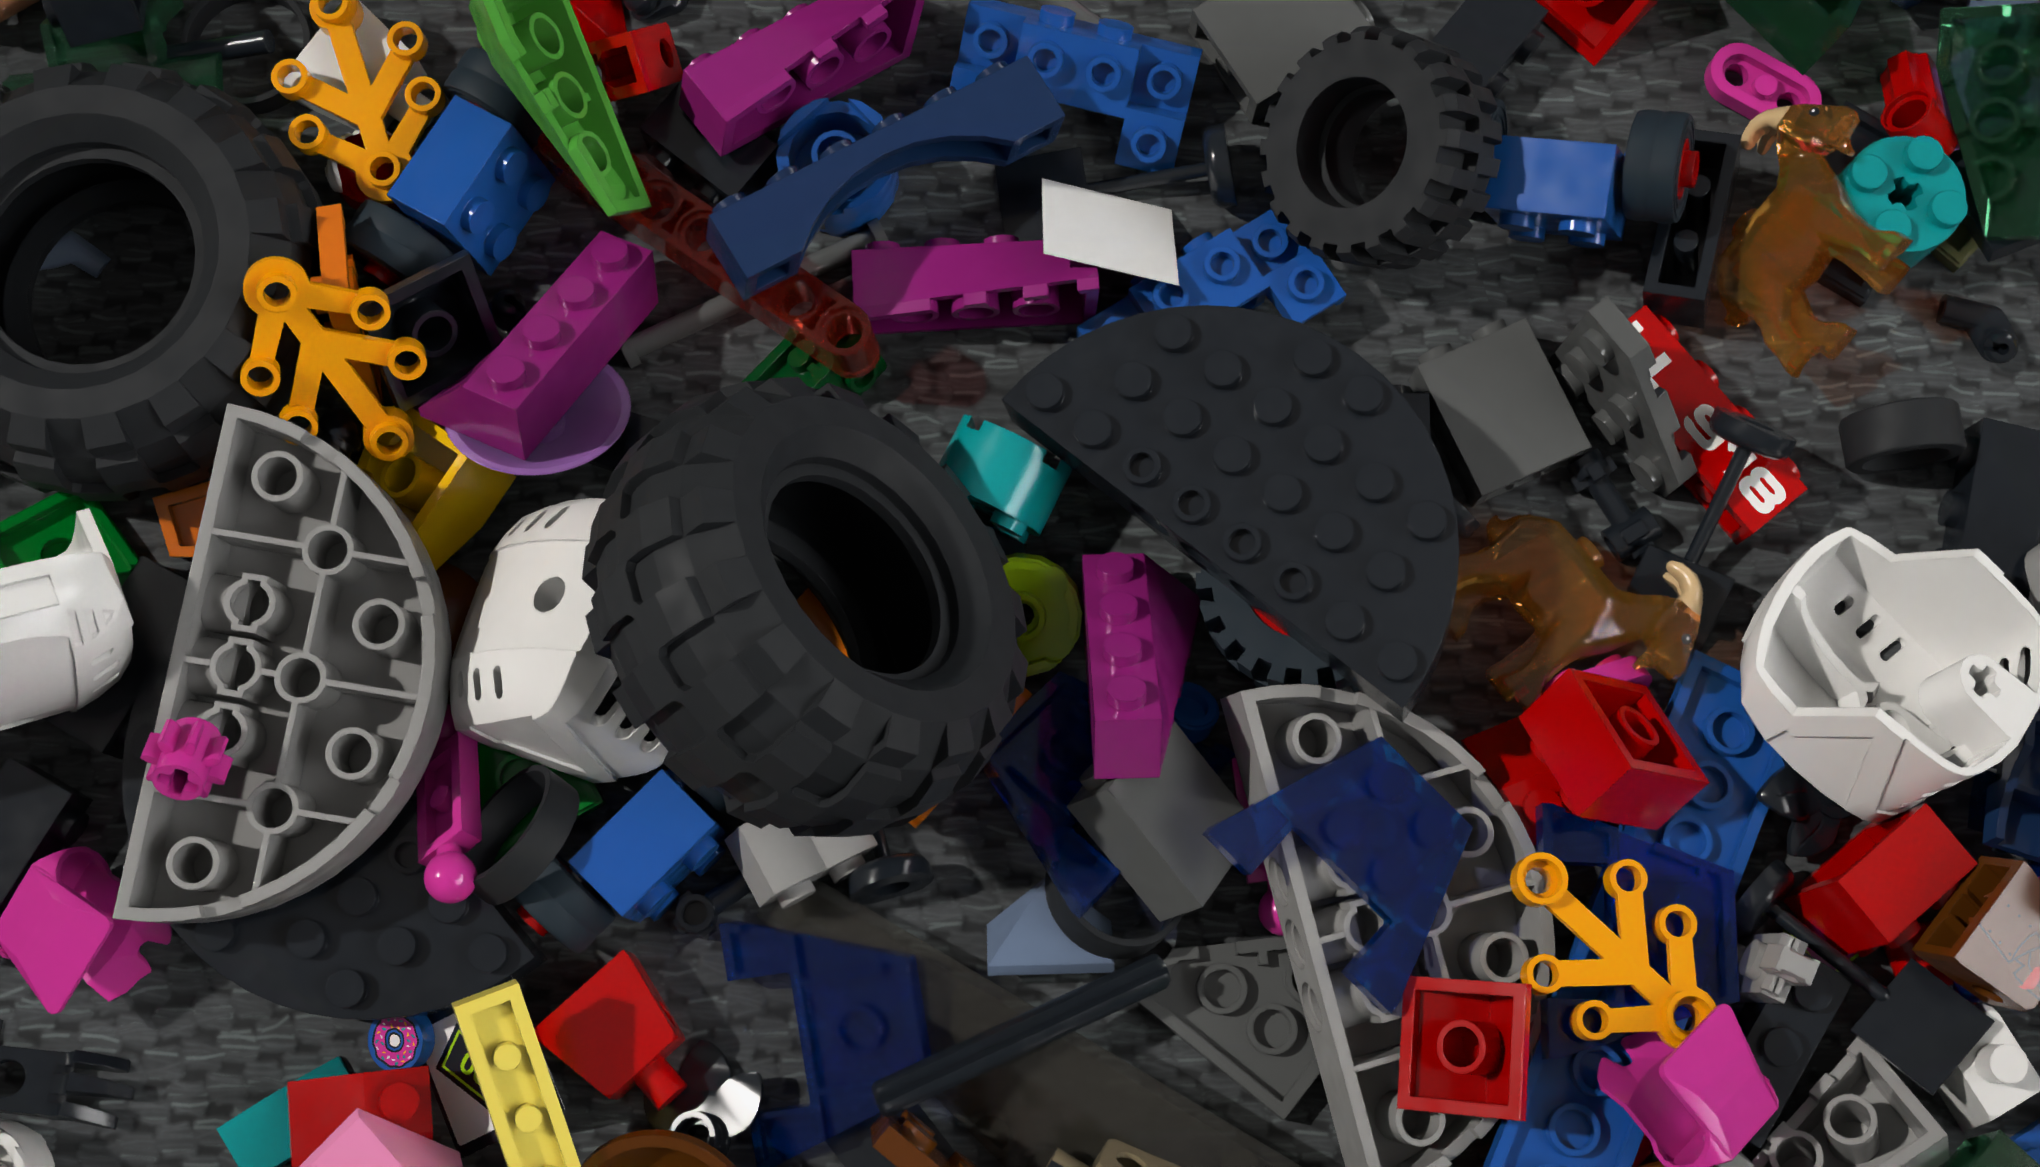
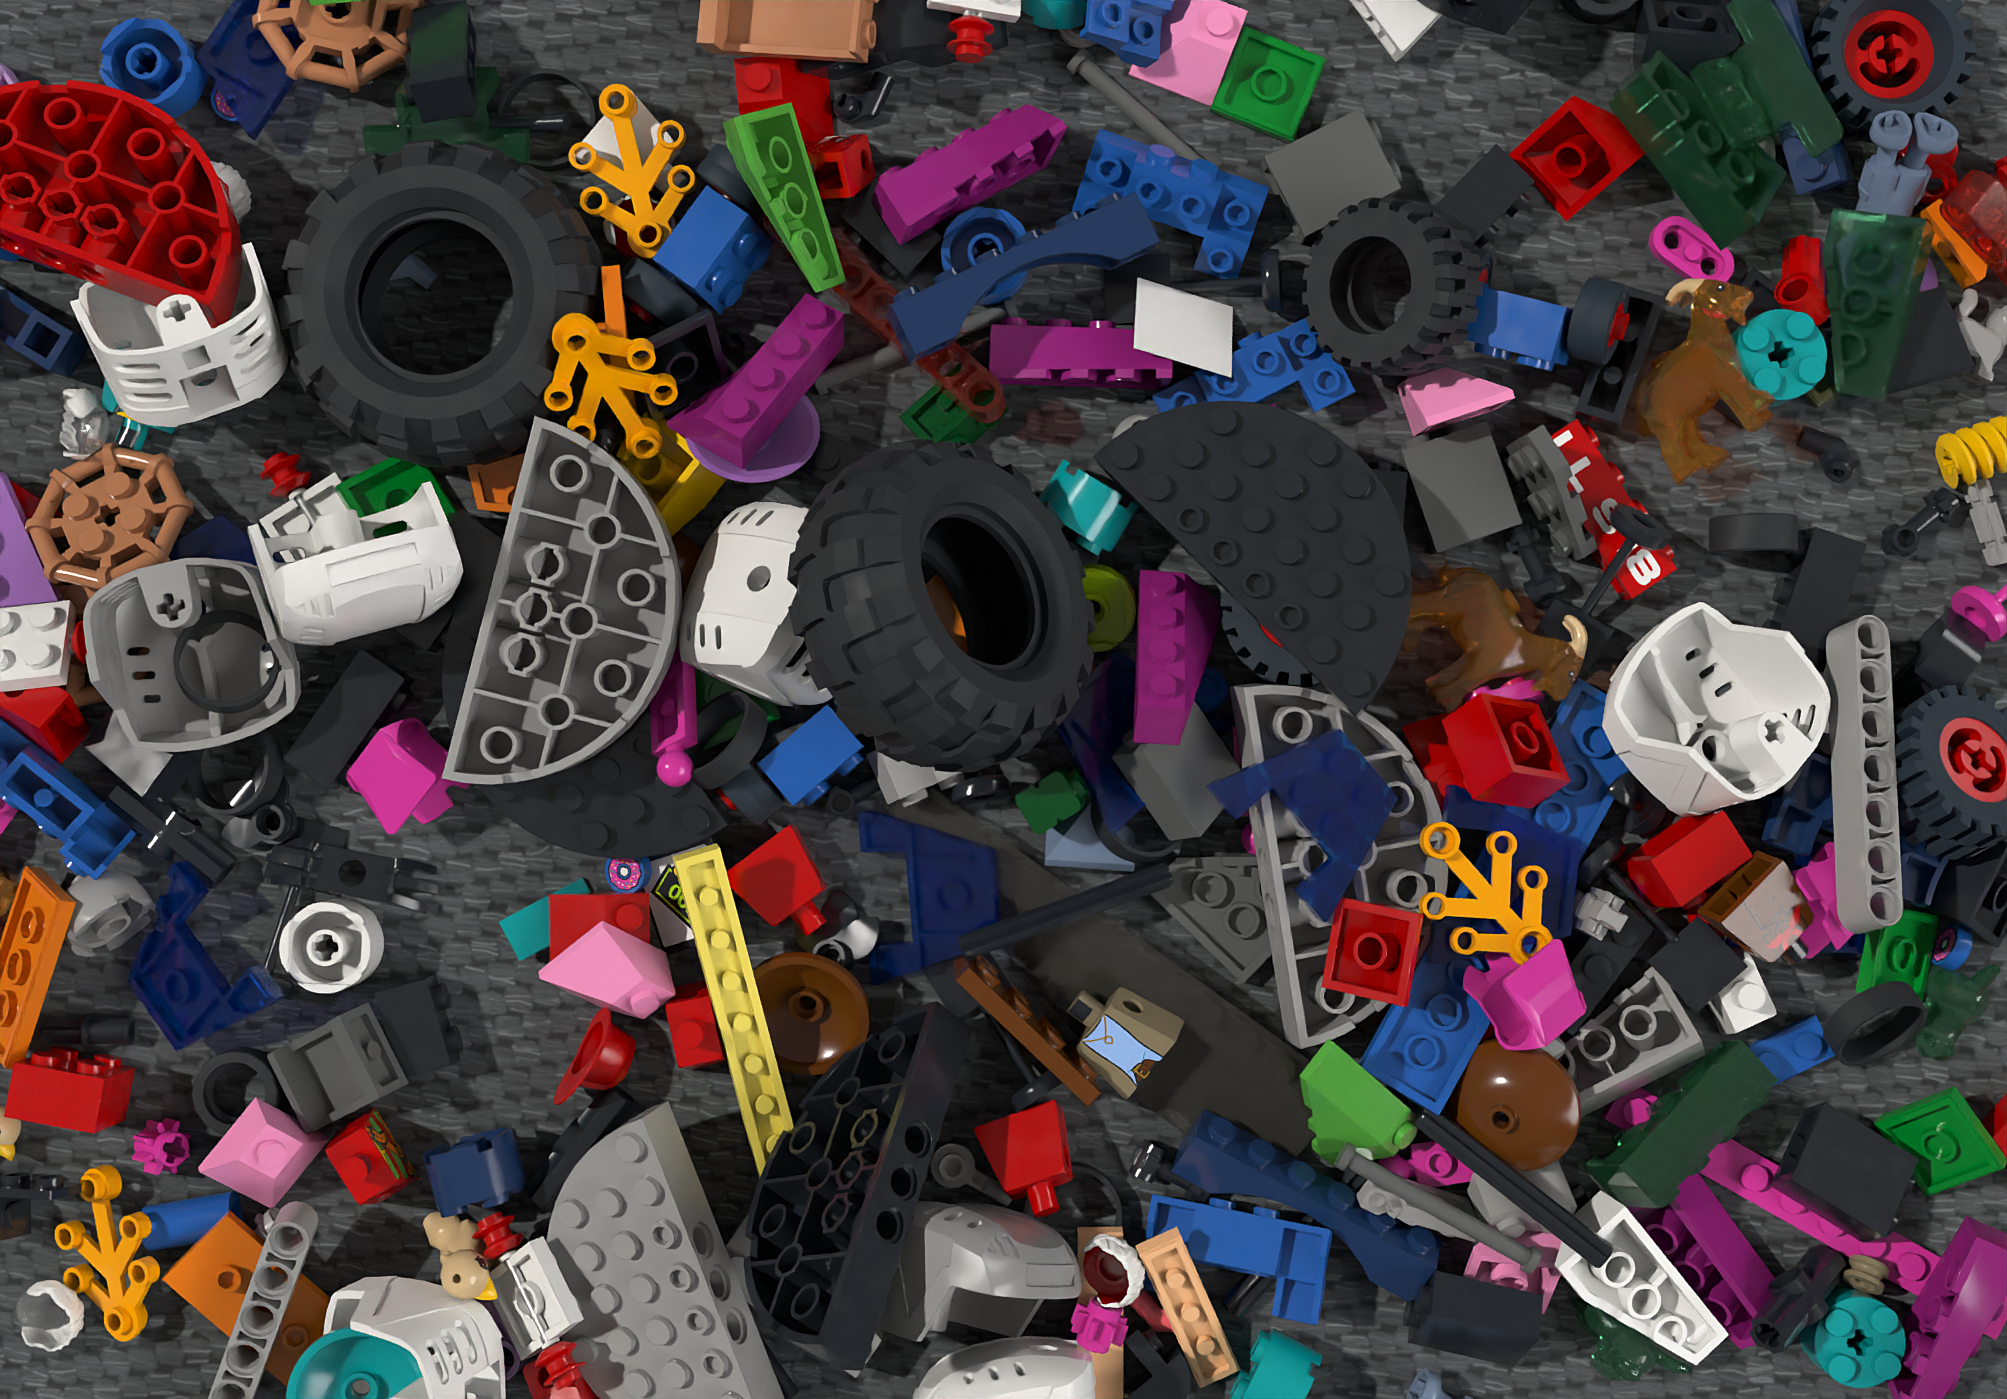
camera: 10 degrees right, 10 degrees up
(187, 758) = (500, 674): dark pink gear -> none
(990, 876) = (1053, 798): none -> dark green brick
(1472, 290) = (1447, 397): none -> bright pink slope

